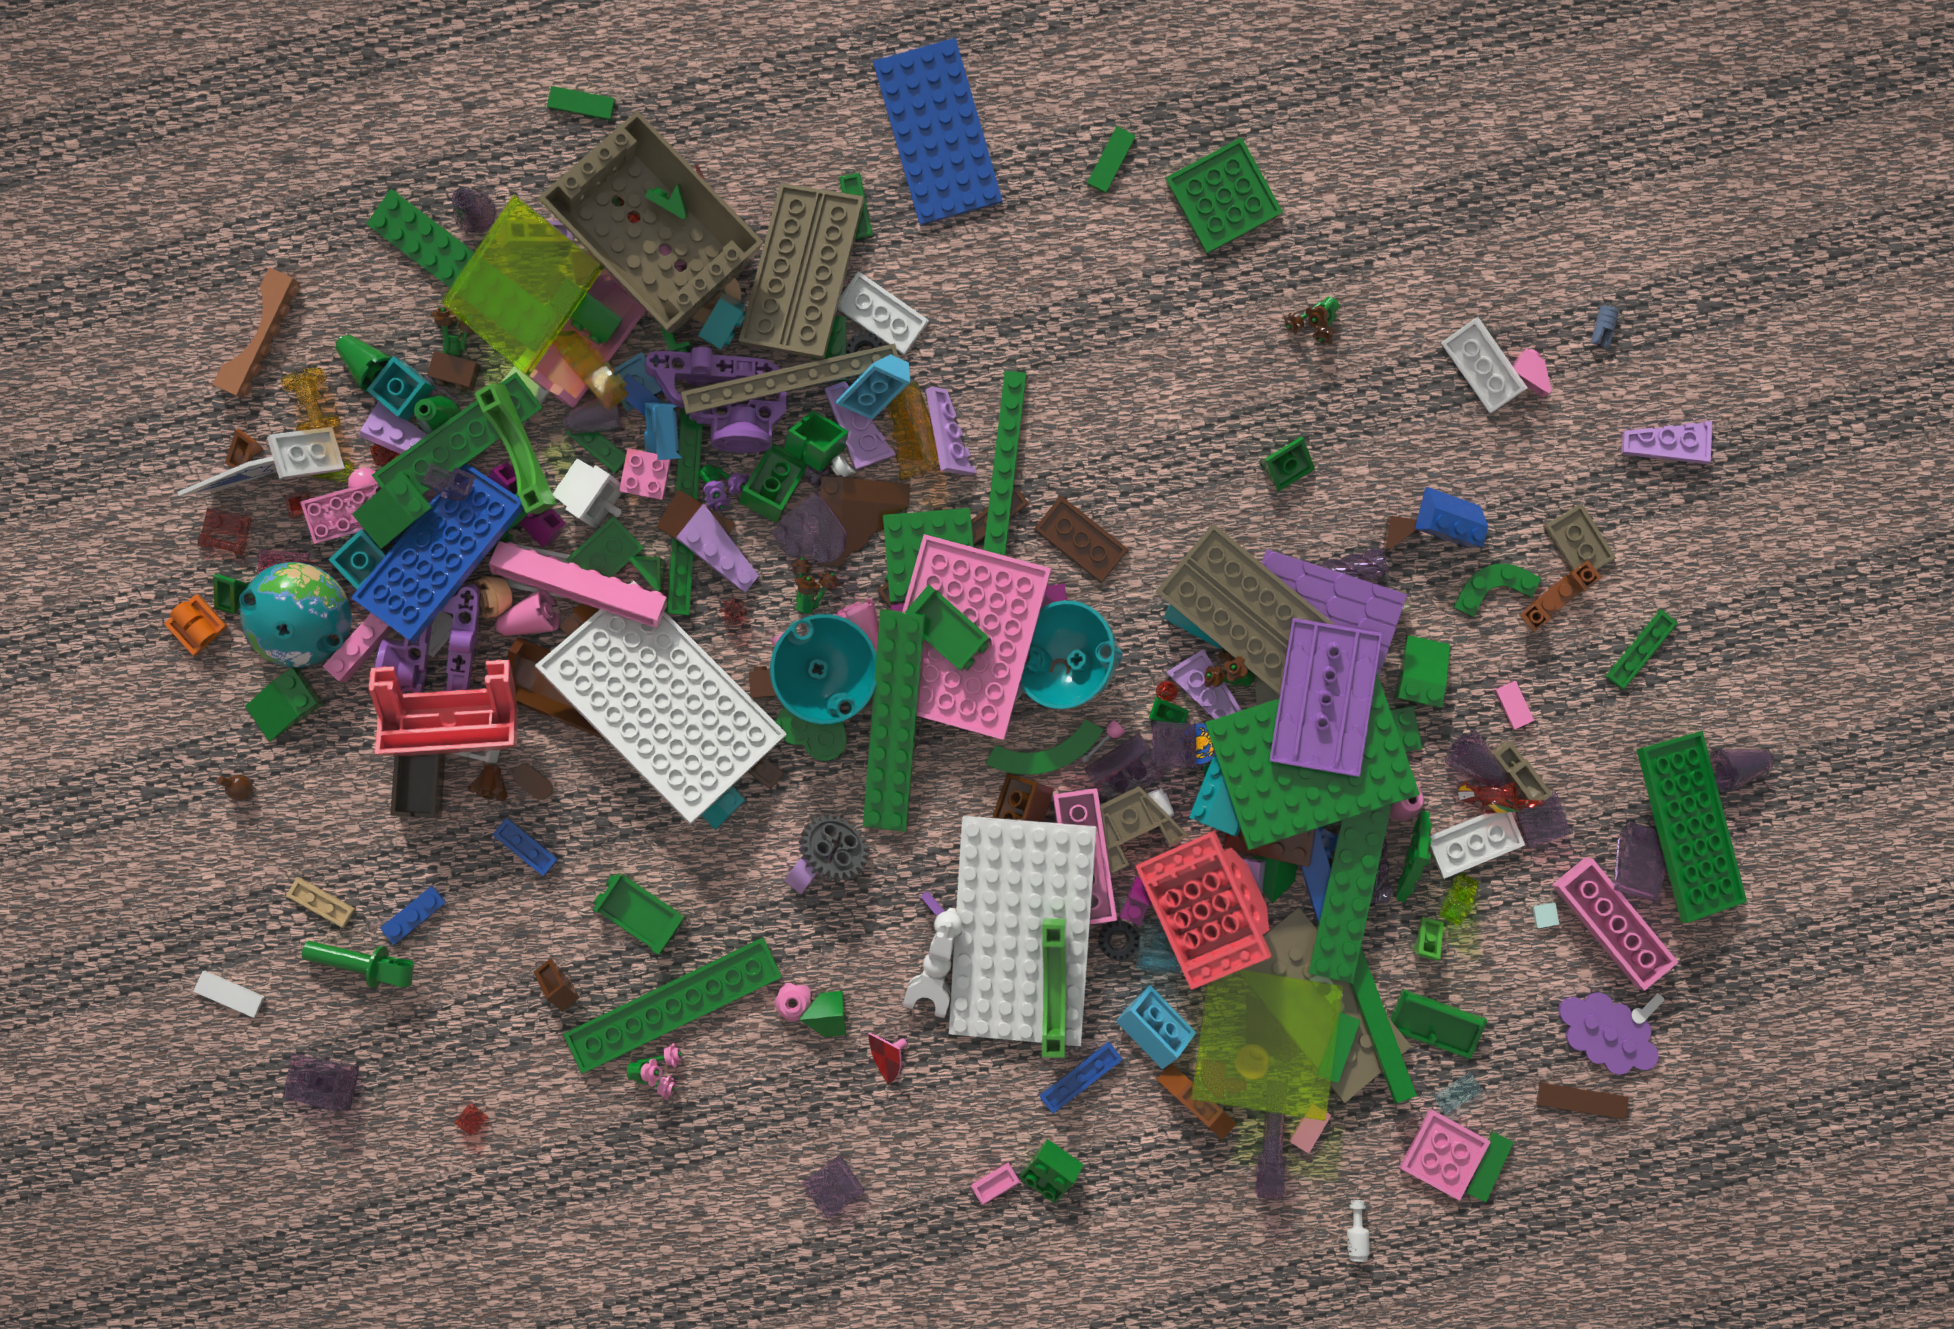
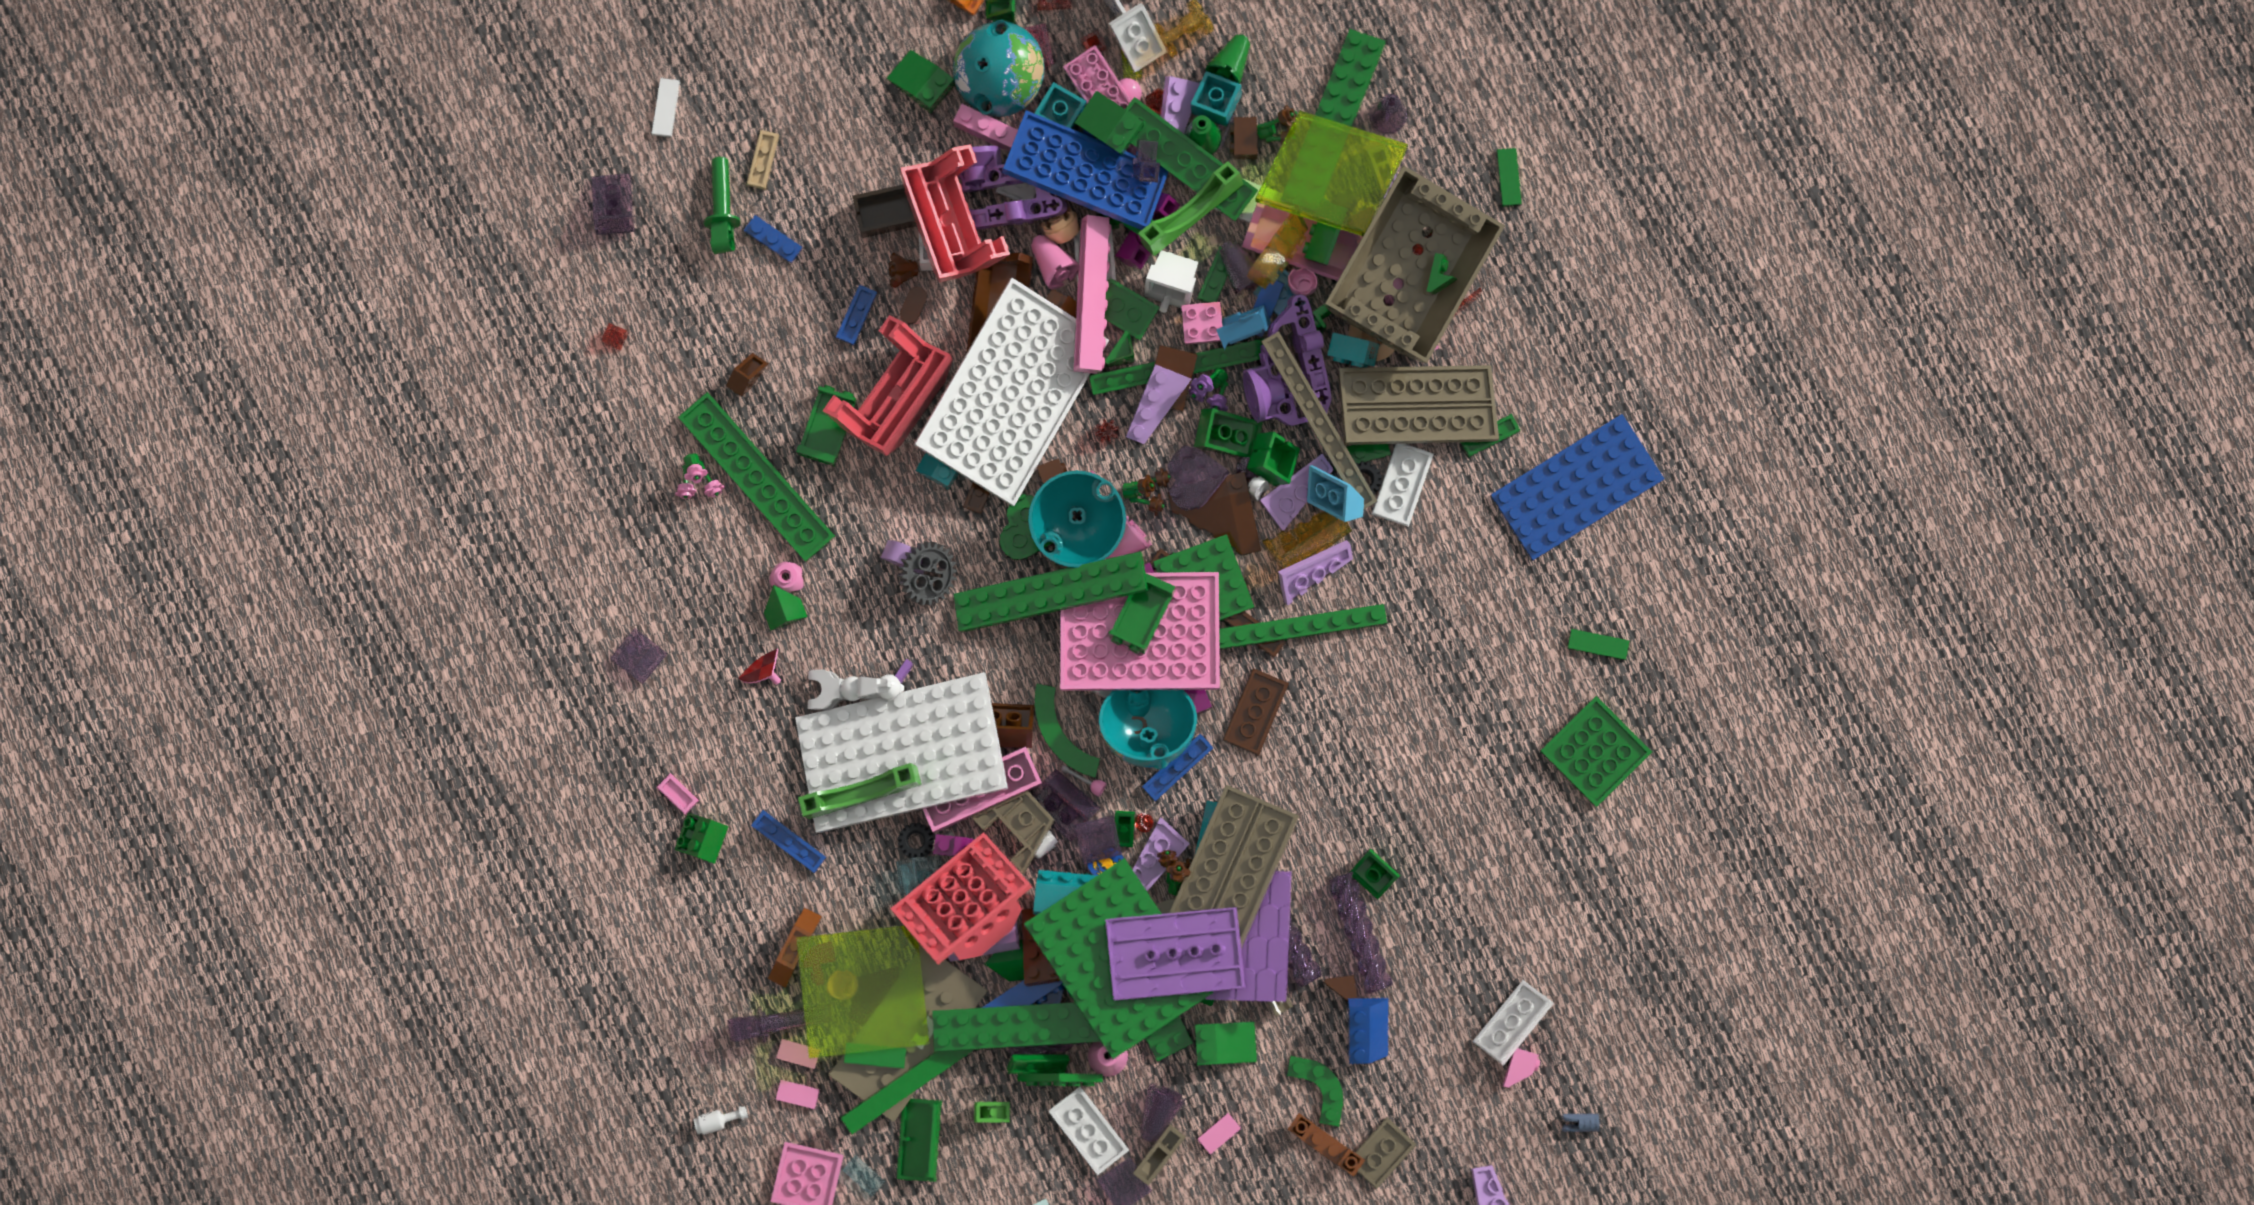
camera: 75 degrees right, 5 degrees down
(237, 787) = (841, 63): reddish brown piece -> none
(627, 824) = (899, 394): none -> coral wedge
(631, 353) = (1302, 282): none -> bright pink hair
(1130, 664) = (1175, 770): none -> blue plate
(1156, 1027) = (849, 894): medium azure slope -> none
(1317, 317) = (1509, 860): reddish brown plant -> none
(1344, 496) = (1359, 930): none -> clear purple piece
(1352, 1140) = (797, 1094): none -> bright pink tile
(1394, 876) = (1037, 1064): none -> green tile
(1459, 899) = (1034, 1129): clear neon green slope -> none
(1495, 799) = (1130, 1136): clear red animal -> none

